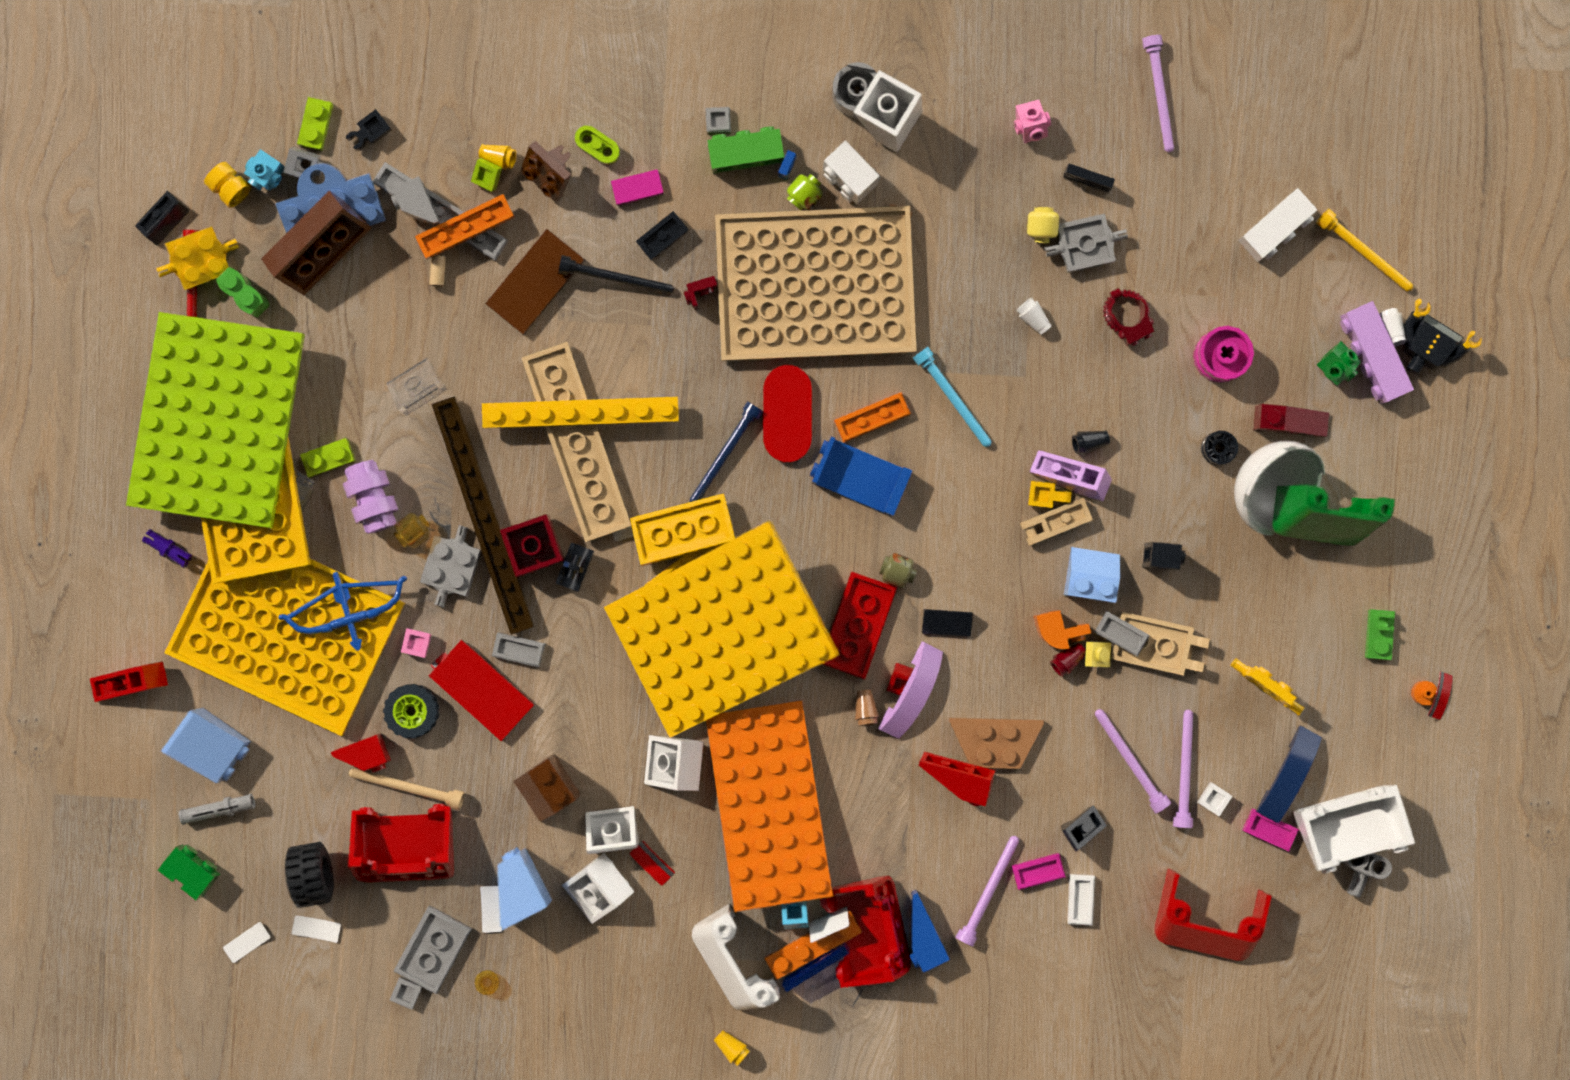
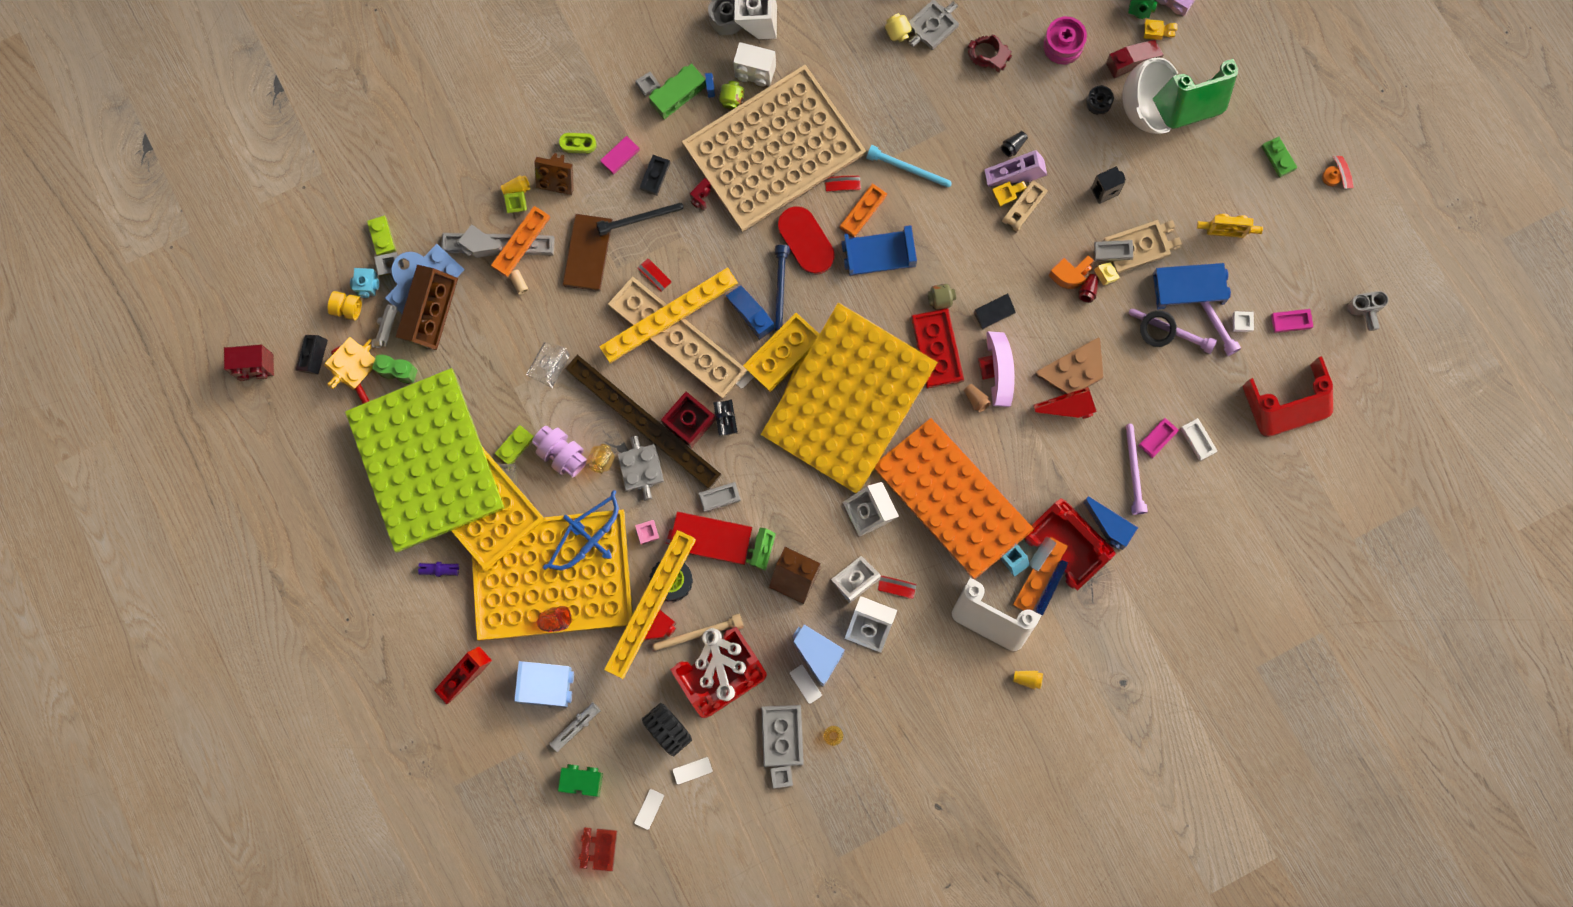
camera: 25 degrees left, 10 degrees down
(83, 190) = (249, 362): none -> dark red brick
(175, 956) = (604, 849): none -> clear red plate
(258, 683) = (554, 619): none -> clear red rock
(261, 234) = (385, 327): none -> light grey piece
(369, 729) = (650, 604): none -> yellow plate
(372, 128) = (421, 217): black plate -> none
(407, 834) = (718, 662): none -> white plant
(529, 737) = (763, 548): none -> bright green plate
(594, 352) = (654, 274): none -> red sticker
(675, 460) = (751, 312): none -> blue slope
(869, 371) = (843, 183): none -> red sticker
(1034, 316) = (928, 87): white cone -> none
(1083, 827) = (1169, 390): black slope -> none
(1093, 575) = (1071, 227): light blue slope -> none
(1104, 767) = (1161, 314): none -> black tyre
(1183, 725) = (1191, 284): none -> blue panel
(1291, 775) = (1283, 278): dark blue slope -> none
(1337, 401) = (1156, 29): none -> yellow plate
(1354, 826) = (1346, 281): white windscreen -> none

